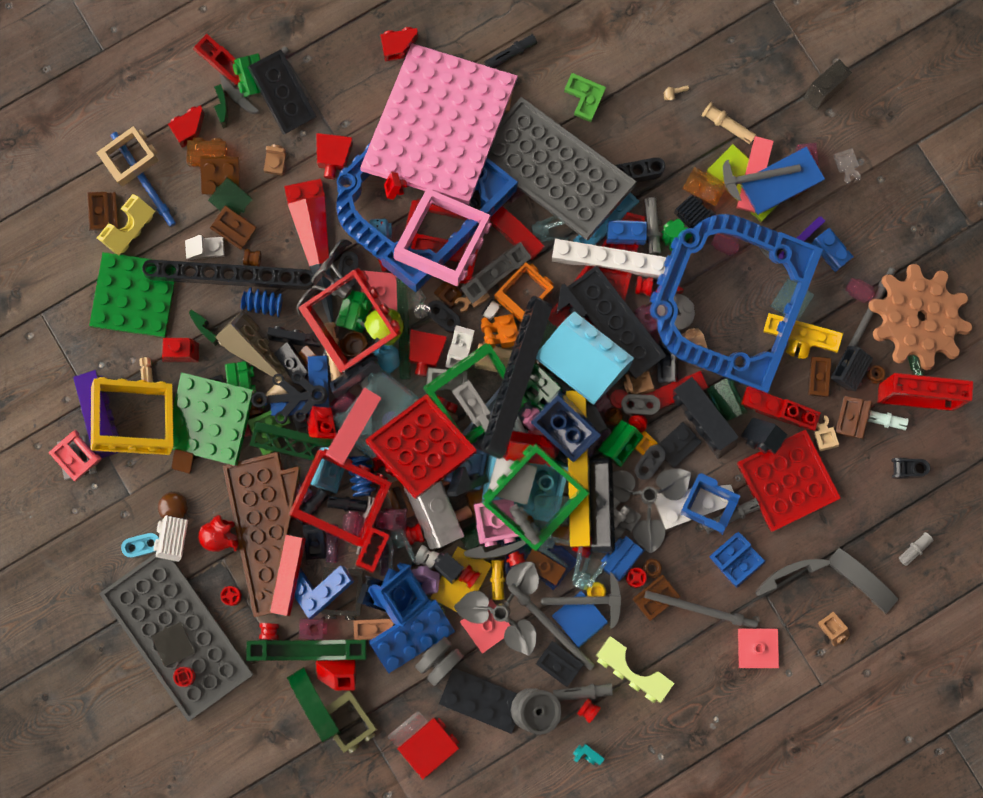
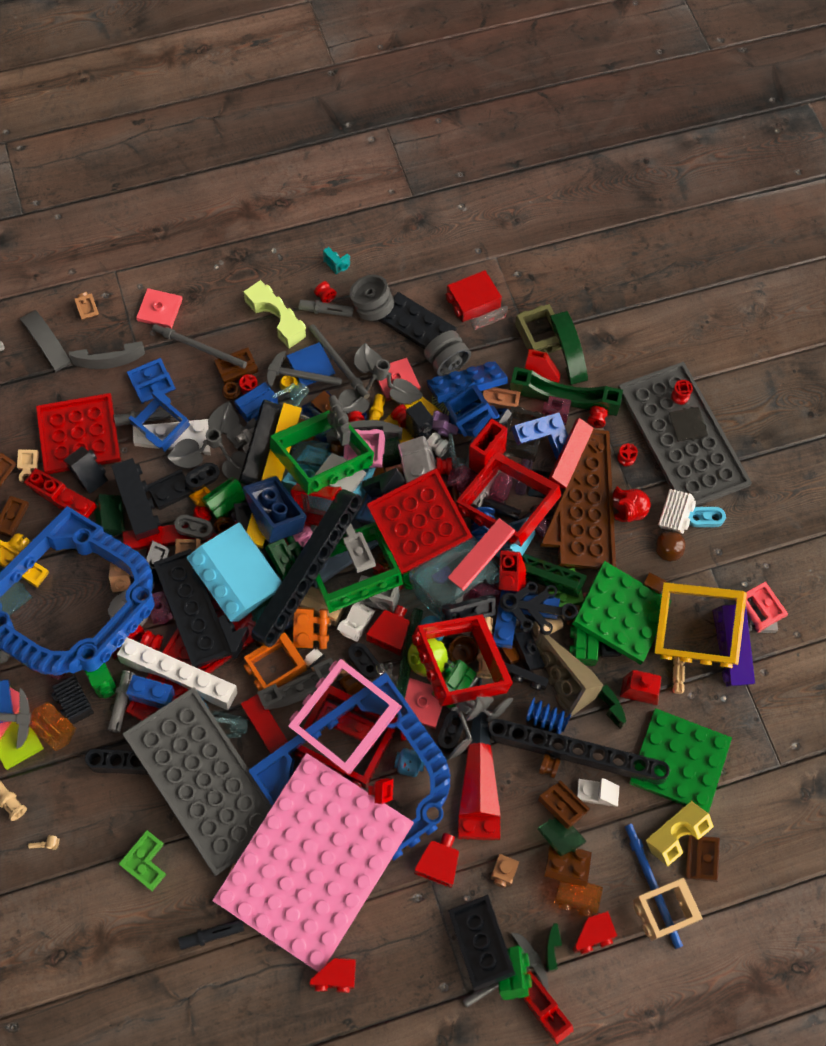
camera: 165 degrees left, 15 degrees down
(559, 664) = (340, 334): black plate -> none

